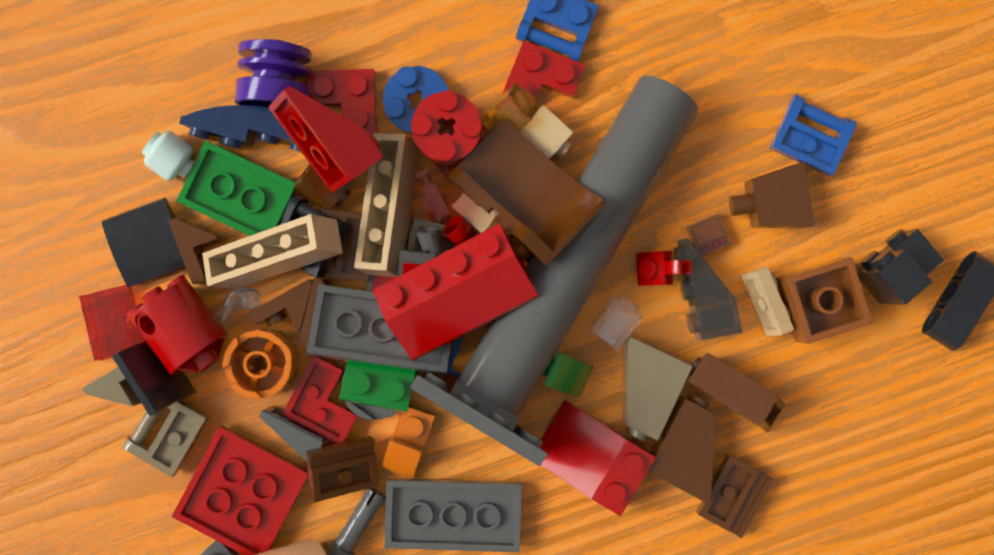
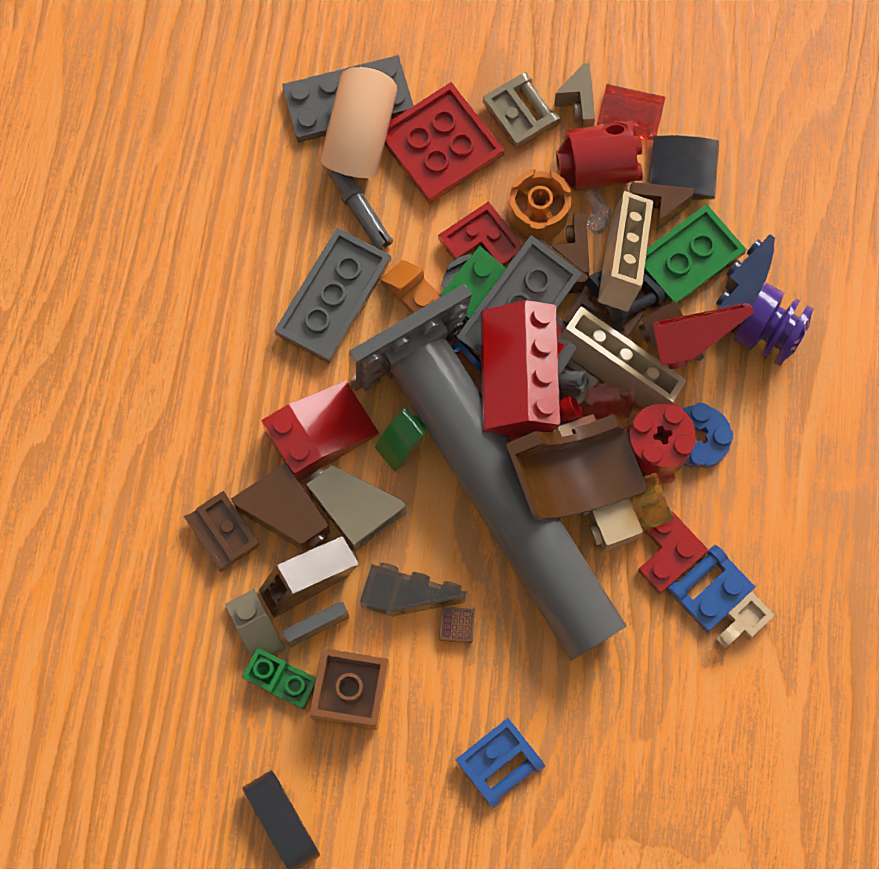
camera: 120 degrees right, 15 degrees down
(151, 380) = (568, 113): slope -> none
(168, 155) = (747, 215): light aqua head -> none
(296, 435) = (459, 206): dark grey slope -> none
(342, 468) = (419, 225): reddish brown plate -> none
(351, 90) = (731, 388): red plate -> none
(616, 322) = (423, 504): clear brick -> none
(658, 268) = (451, 562): red plate -> none
(767, 302) = (386, 645): tan plate -> none
(776, 199) = (459, 696): reddish brown torso -> none
(776, 362) = (316, 624): none -> dark grey tile
(803, 417) = (254, 624): none -> dark tan slope
(838, 369) = (280, 678): none -> green slope
(899, 268) = (342, 774): black brick -> none

